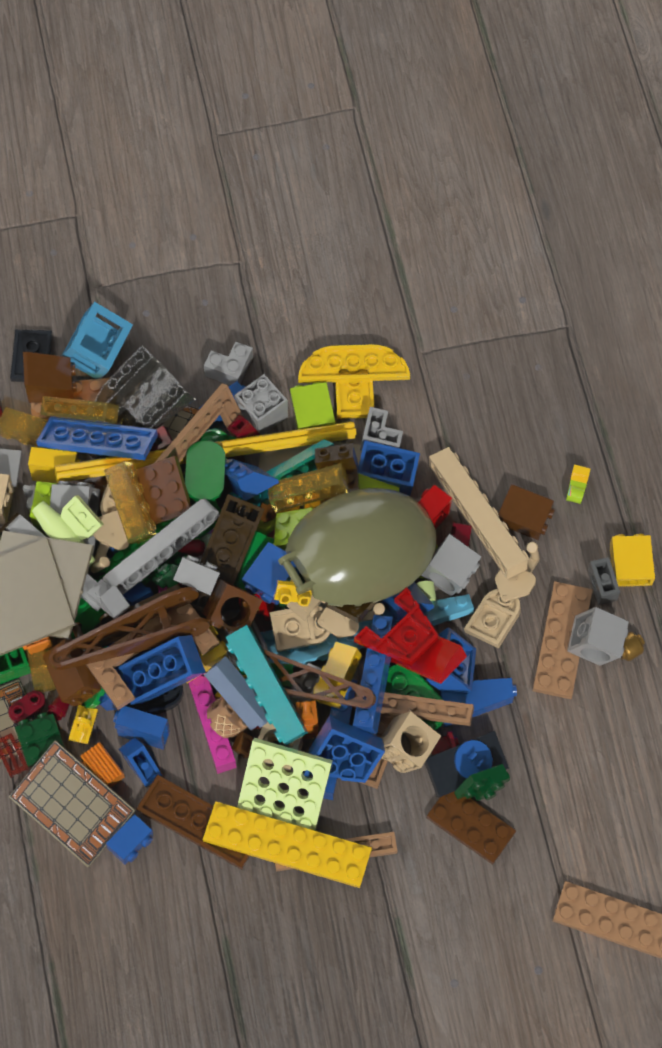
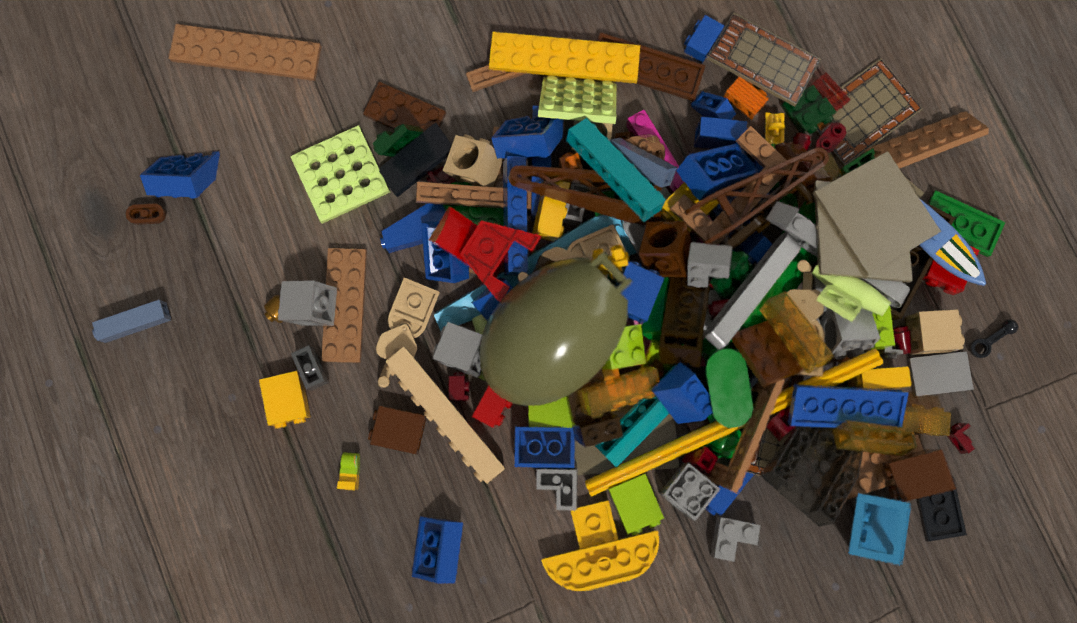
camera: 170 degrees right, 15 degrees up
(17, 502) = (902, 338): none -> dark red cone
(472, 758) = (410, 162): blue piece -> none
(504, 404) = (437, 550): none -> blue slope
(576, 756) = (352, 178): none -> yellowish green piece

